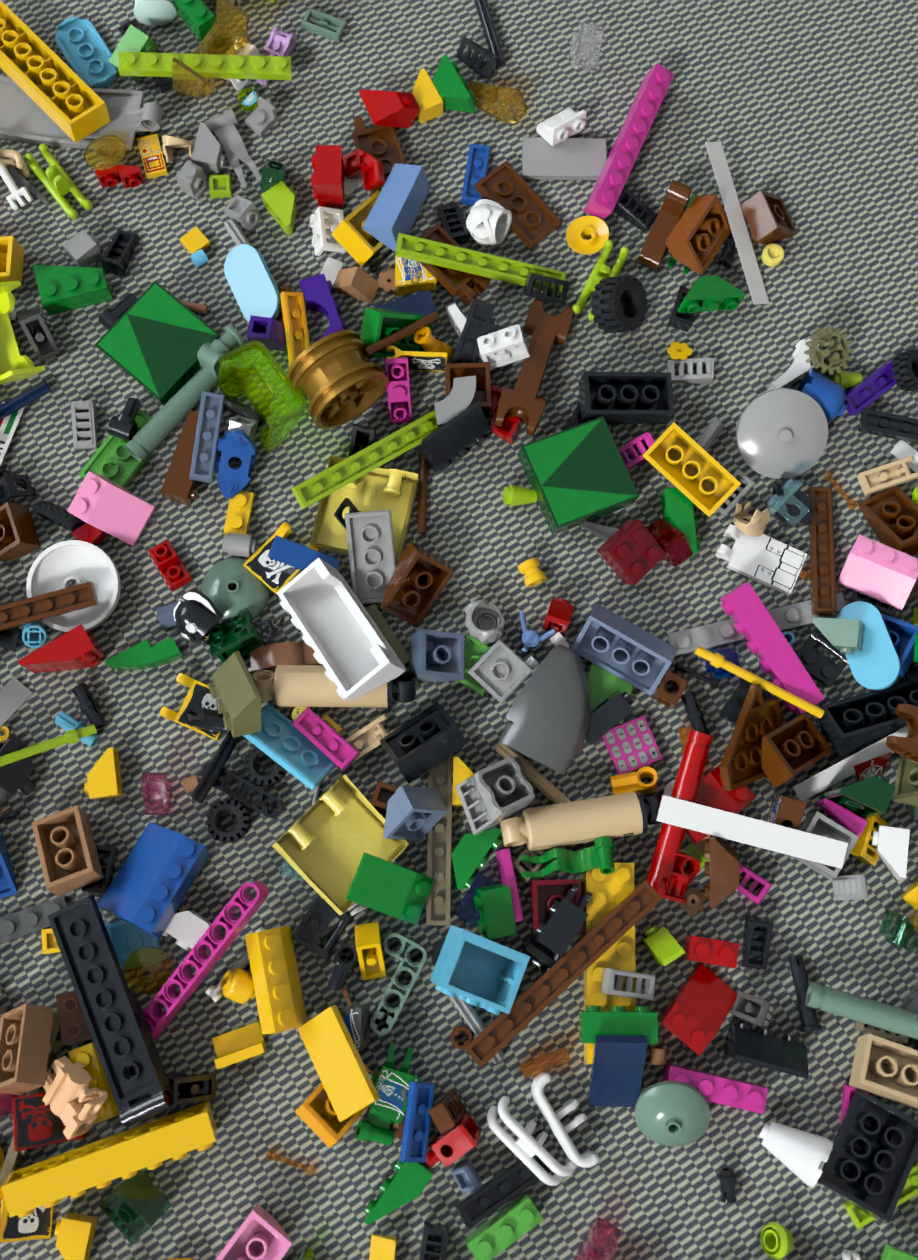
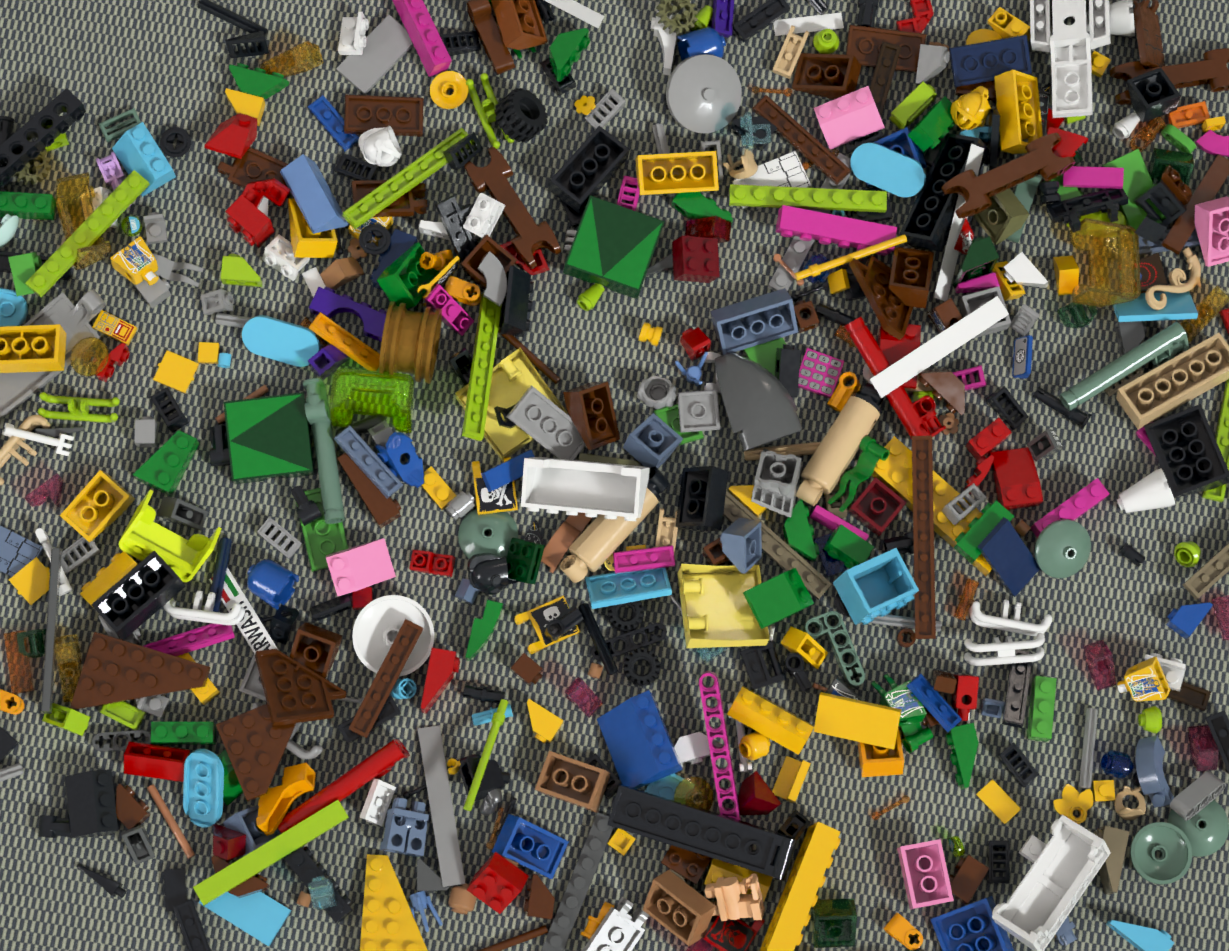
camera: 50 degrees left, 0 degrees up
(35, 450) = (271, 582): none -> blue cylinder
(141, 724) = (527, 670): none -> reddish brown brick
(157, 231) = (176, 371): none -> yellow piece
(171, 143) = (125, 301): tan piece -> none
(192, 180) = (162, 315): light grey brick -> none
(194, 1027) = (756, 797): none -> dark red slope
(214, 119) = (136, 262): none -> yellow torso
(220, 186) = (181, 300): lime tile -> none
(236, 697) = (569, 588): olive slope -> none
(272, 174) = (209, 257): dark green slope -> none
(312, 61) = (141, 153): none -> medium azure slope
(349, 66) = (170, 136): none -> black gear
(400, 272) = (379, 232): none -> black gear
(400, 334) = (416, 273): reddish brown bar -> none
(425, 388) = (461, 289): none -> light orange piece
(563, 922) = (893, 509): black hinge -> none
(661, 945) = (958, 465): lime slope -> none
(677, 970) = (983, 466): none -> red slope
(698, 621) = (777, 258): none -> nougat hinge
(728, 691) = (838, 281): none -> yellow tile
(767, 1050) = (1075, 459): black slope -> none
(777, 600) = (808, 198): none -> lime plate
(815, 915) = (1022, 357): none -> slope
(842, 633) = (867, 178): slope -> none

